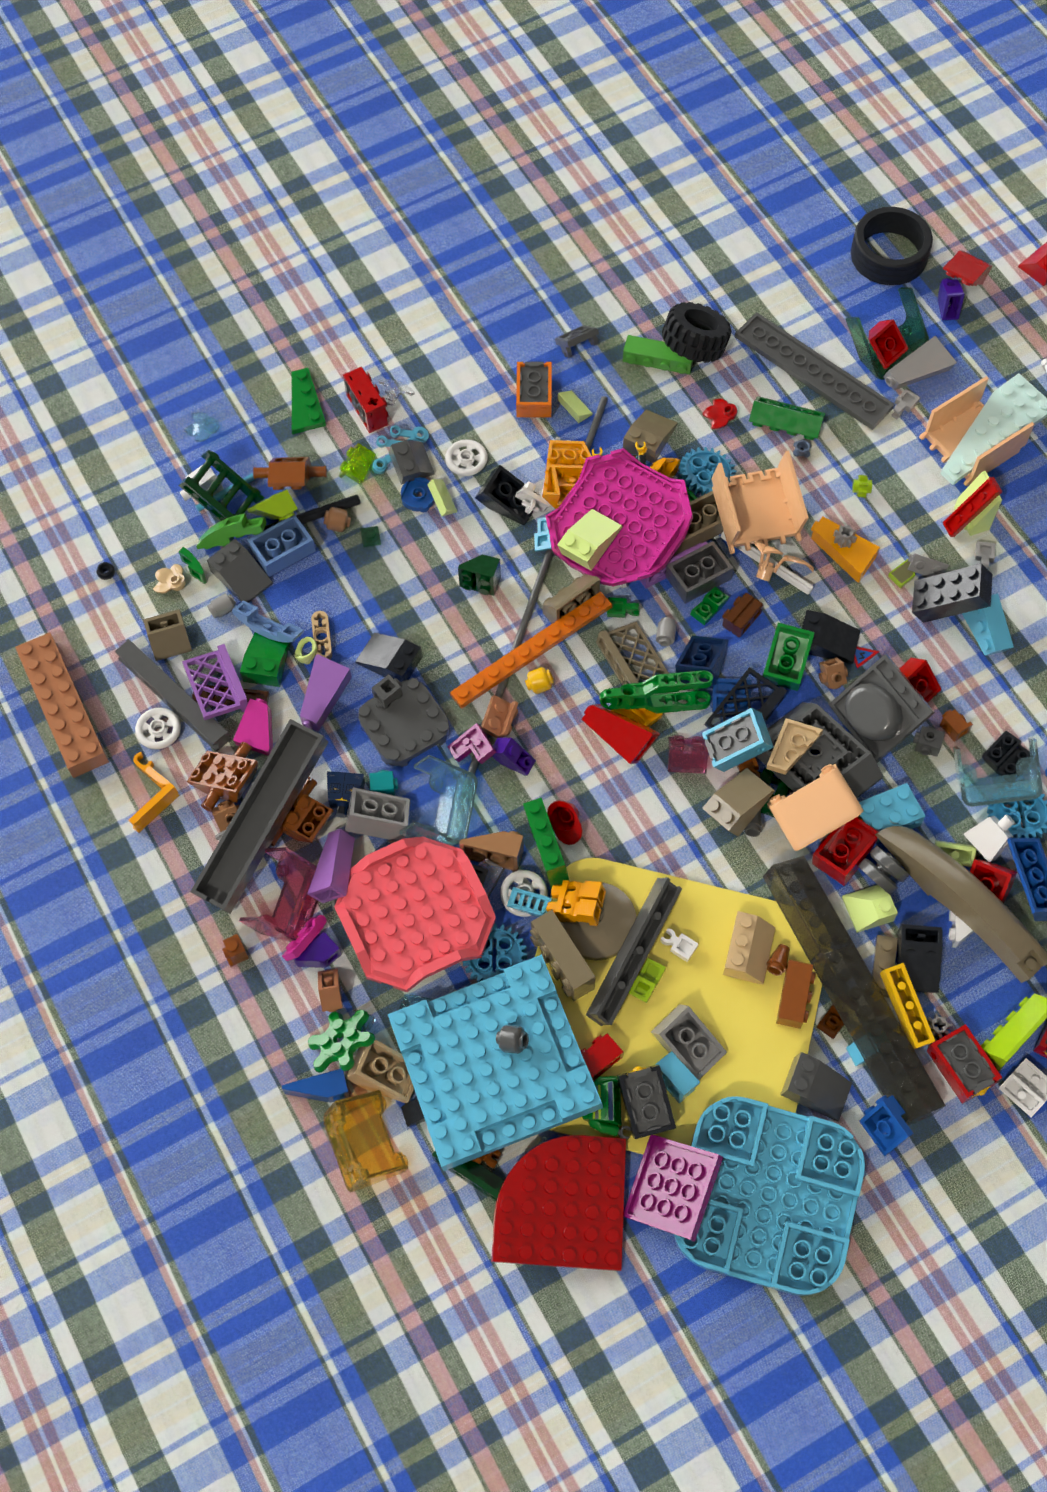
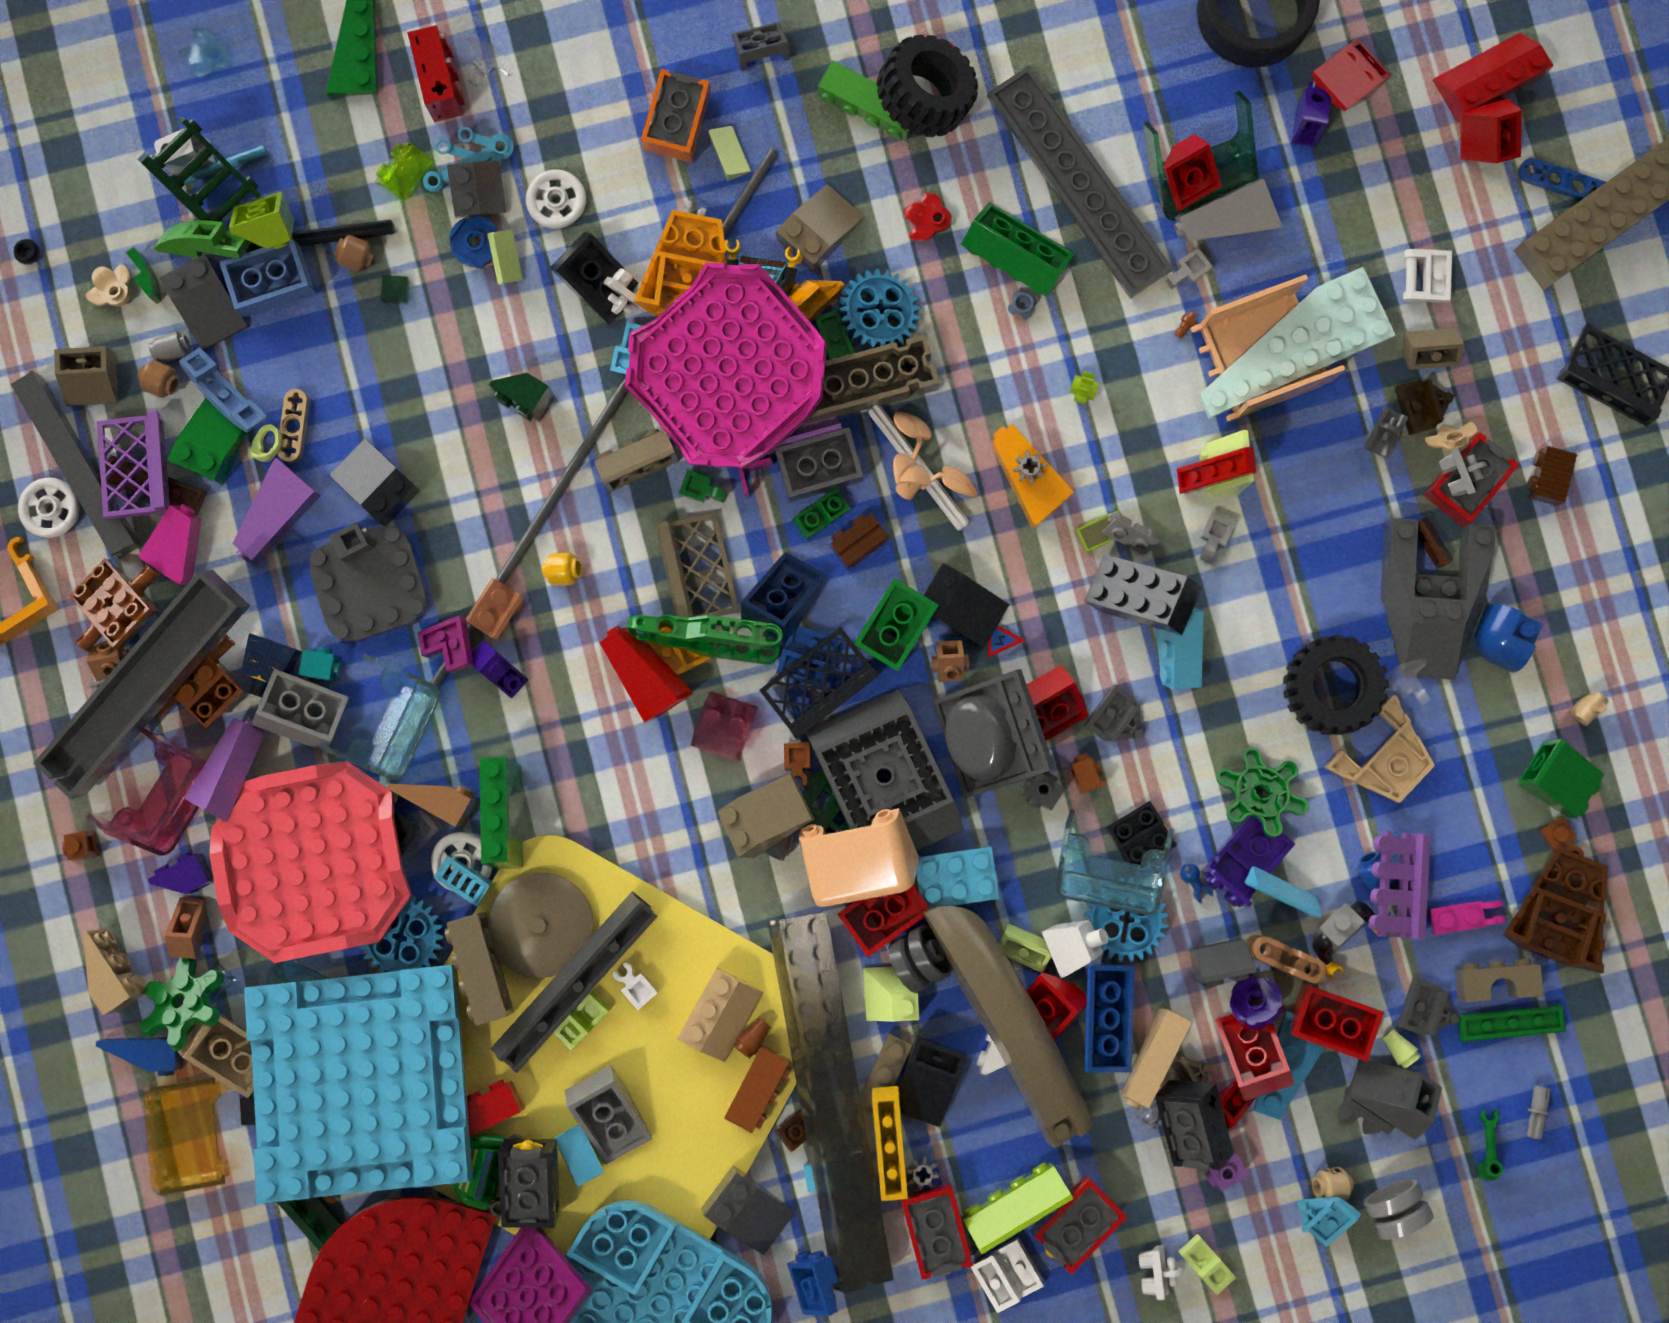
camera: 10 degrees right, 20 degrees up
(219, 626) = (158, 379): none -> medium nougat head
(287, 1041) = (109, 973): none -> tan slope
(289, 472) = (296, 175): dark orange slope -> none
(306, 936) = (169, 855): dark pink hinge -> none
(512, 1039) = (379, 1074): dark grey head -> none
(530, 650) = (563, 521): orange plate -> none
(565, 821) = (539, 777): red piece -> none
(578, 901) = (519, 901): light orange hips -> none
(589, 539) = (677, 386): yellowish green slope -> none
(652, 585) = (756, 465): none -> dark pink bracket
(666, 631) = (750, 540): light grey brick -> none
(737, 740) = (787, 735): piece -> none
(760, 506) = (922, 394): light nougat windscreen -> none
(791, 745) = (853, 763): tan wing -> none
(915, 433) = (1187, 322): none -> dark orange piece
(960, 685) = (1115, 717): none -> dark grey slope

